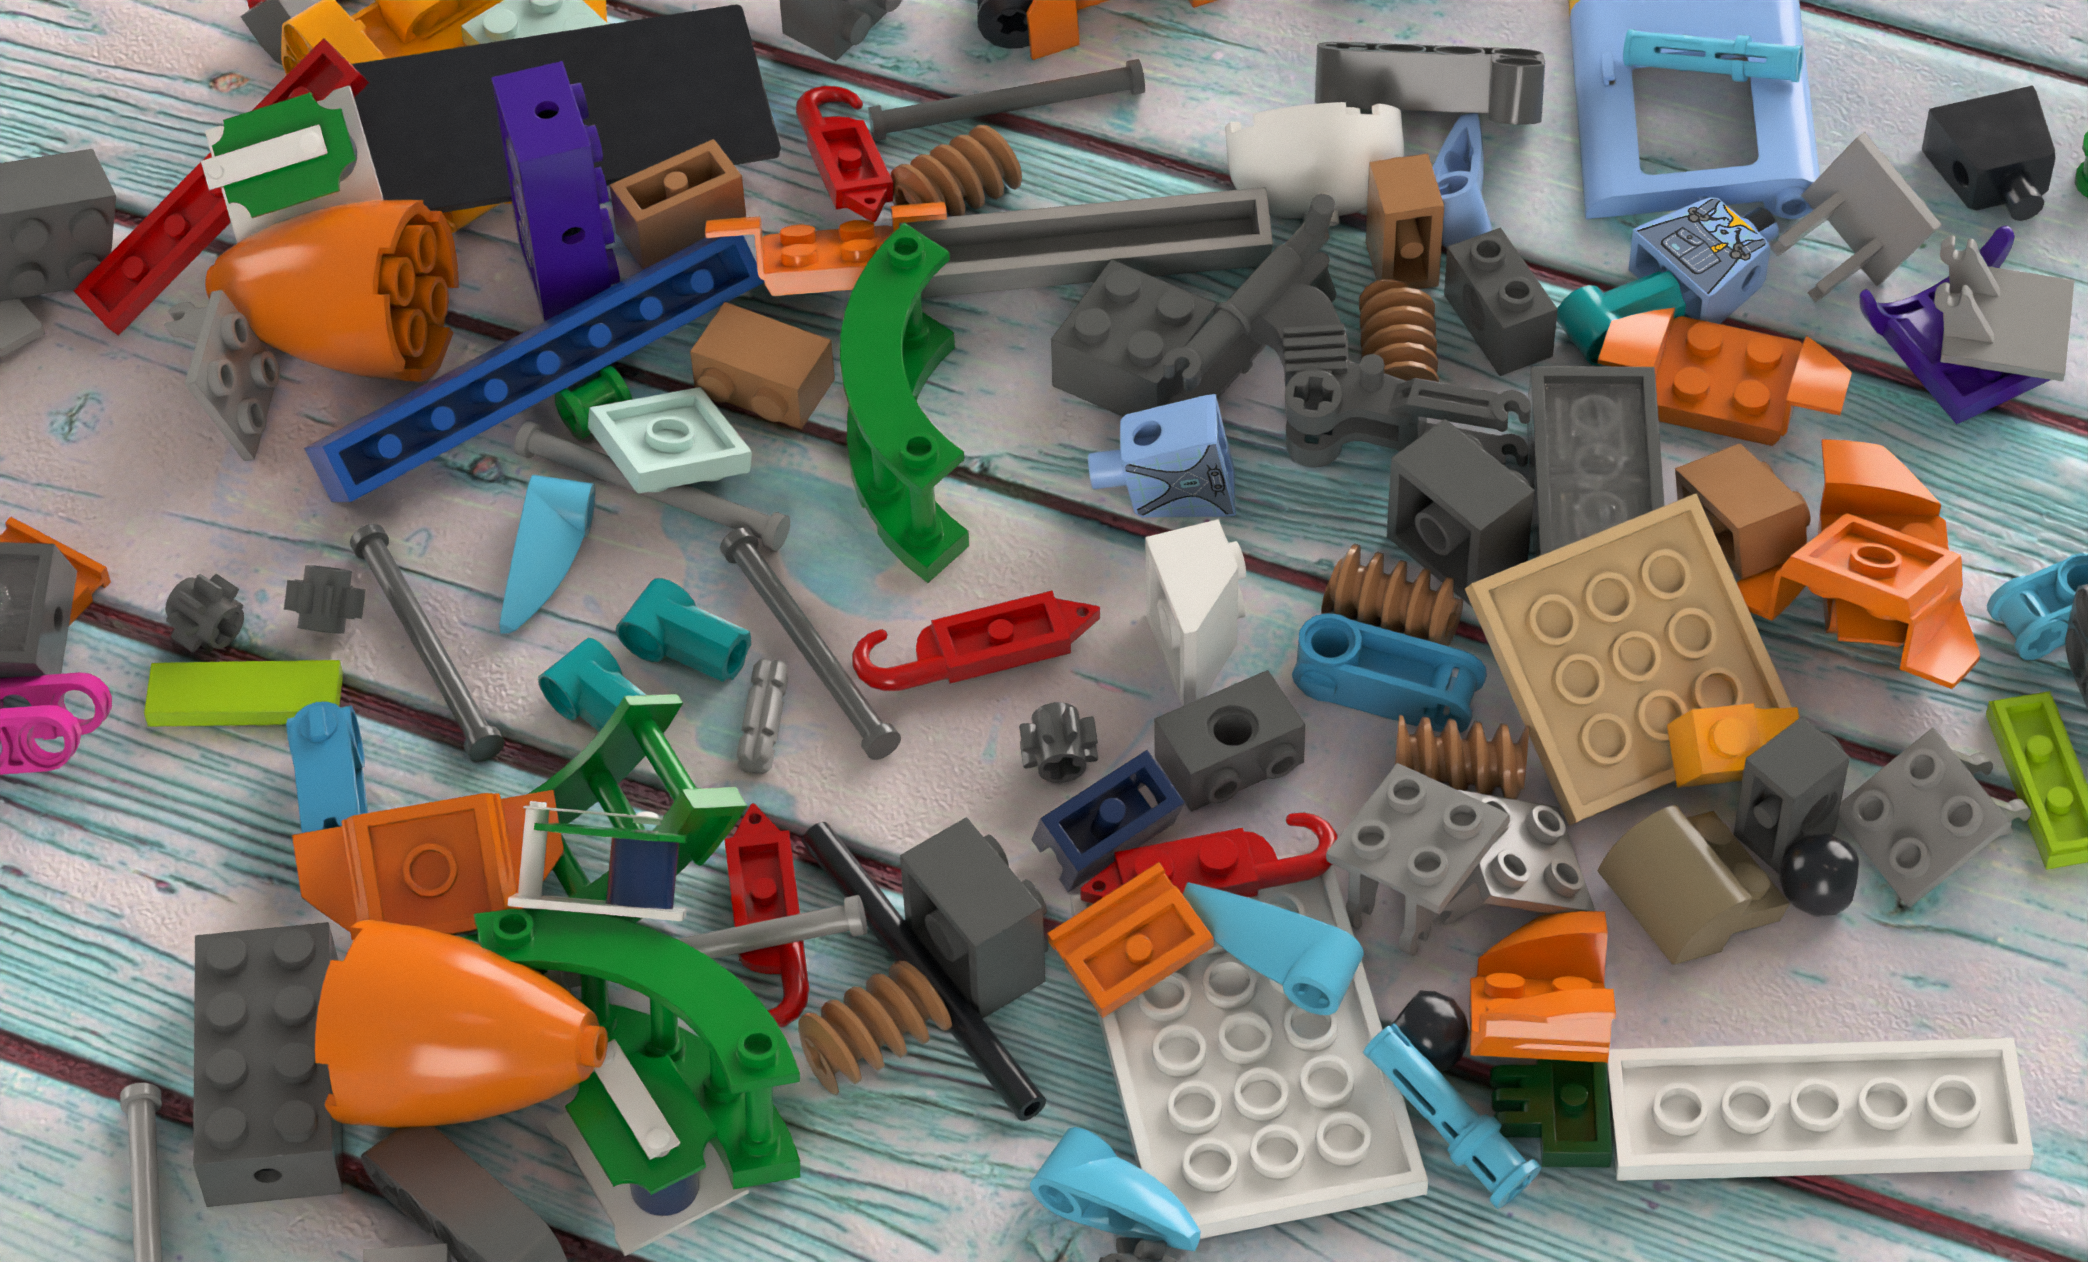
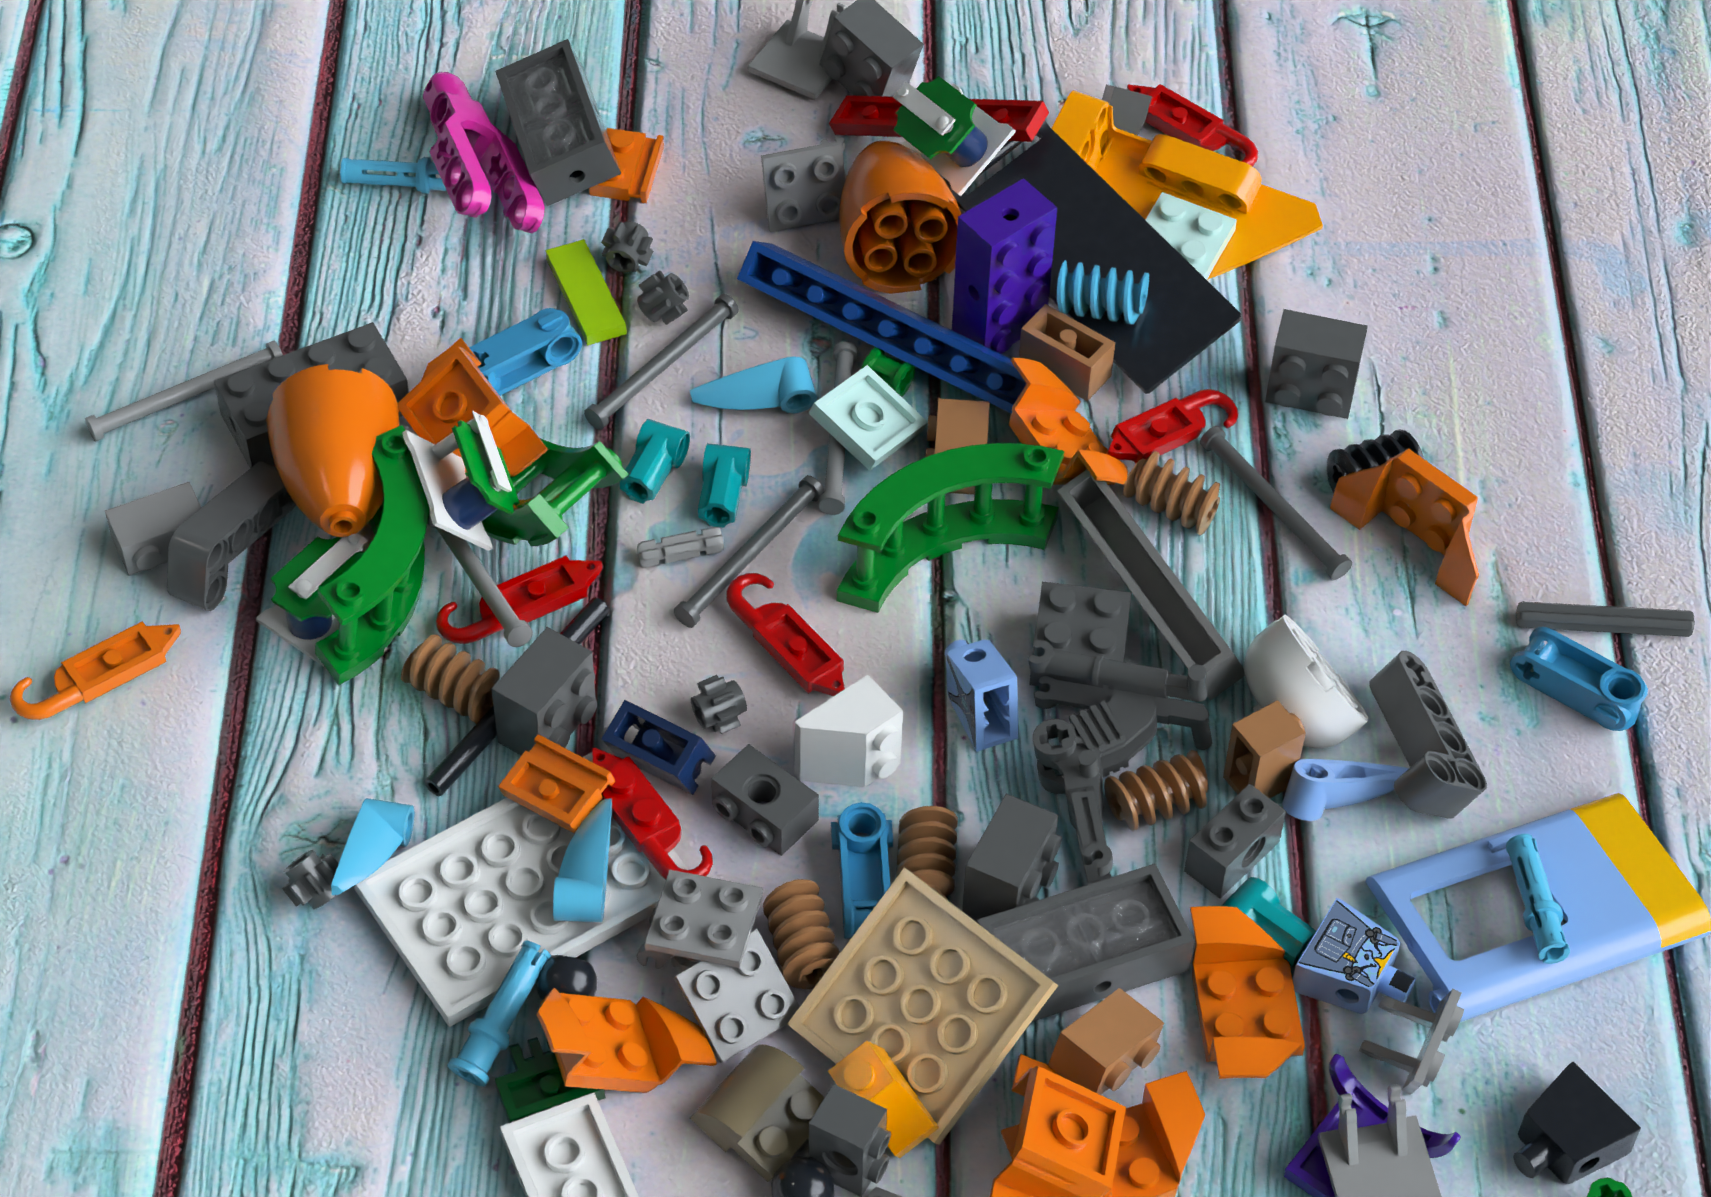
camera: 65 degrees right, 0 degrees up
(640, 111) = (1101, 293): none -> medium azure piece

